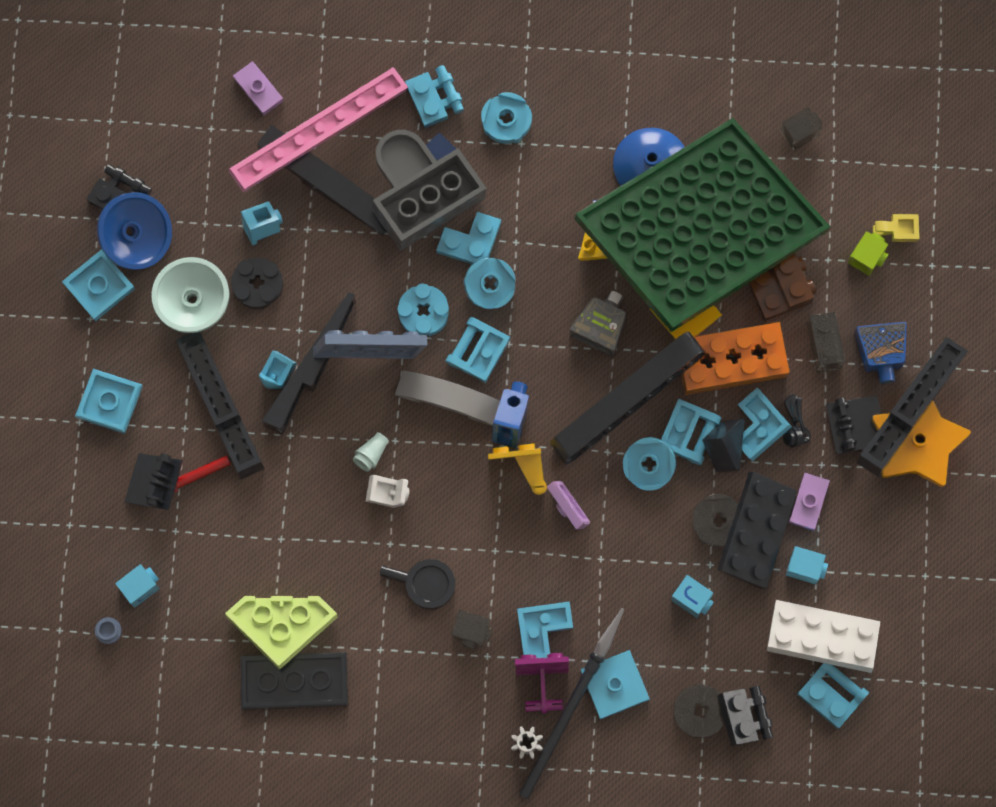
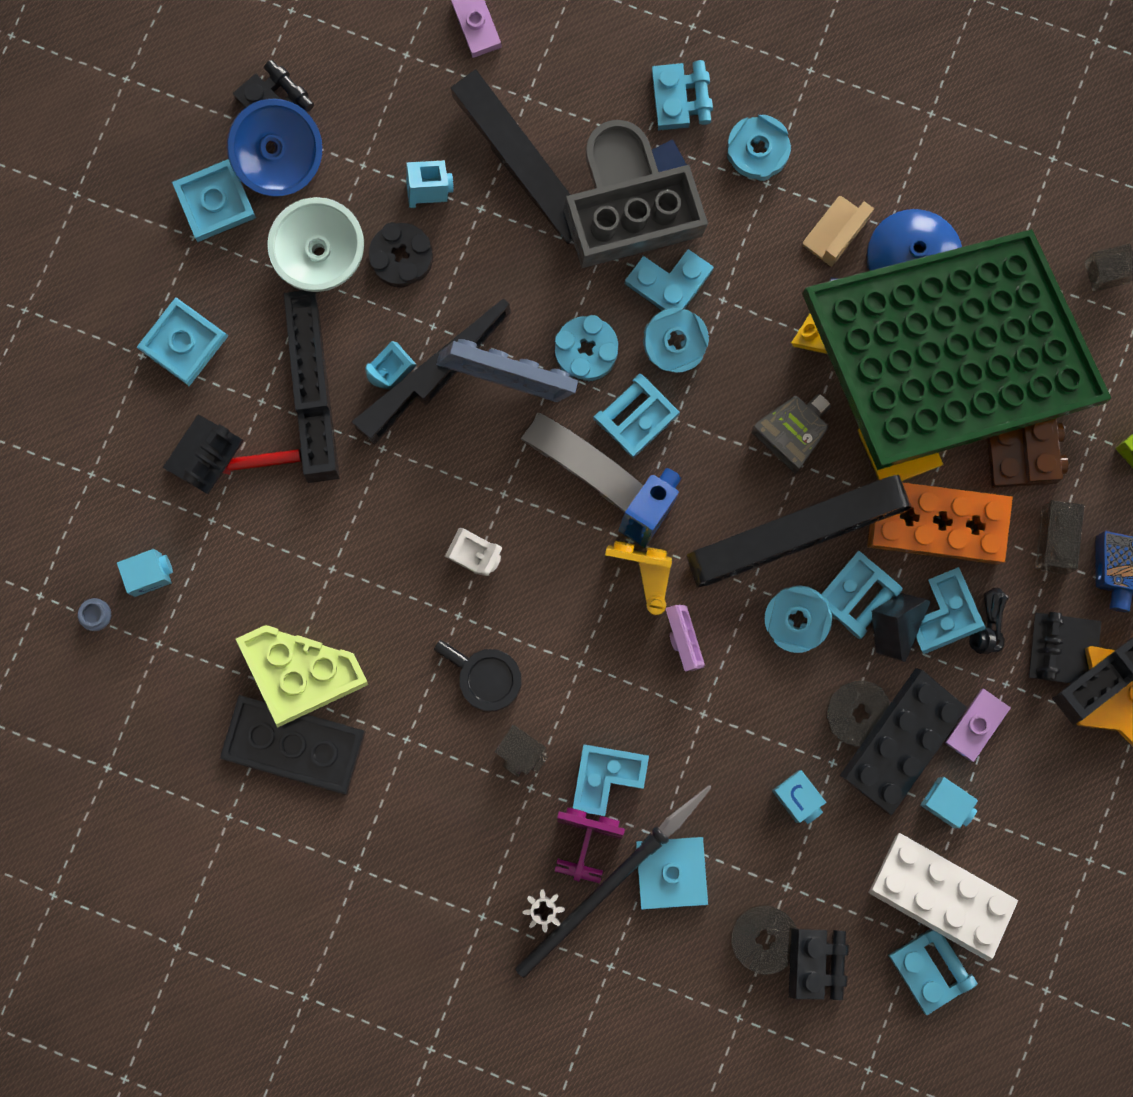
camera: 20 degrees right, 5 degrees up
(318, 129) = (528, 92): bright pink plate -> none
(370, 453) = (468, 500): light aqua cone -> none
(586, 162) = (837, 229): none -> tan panel

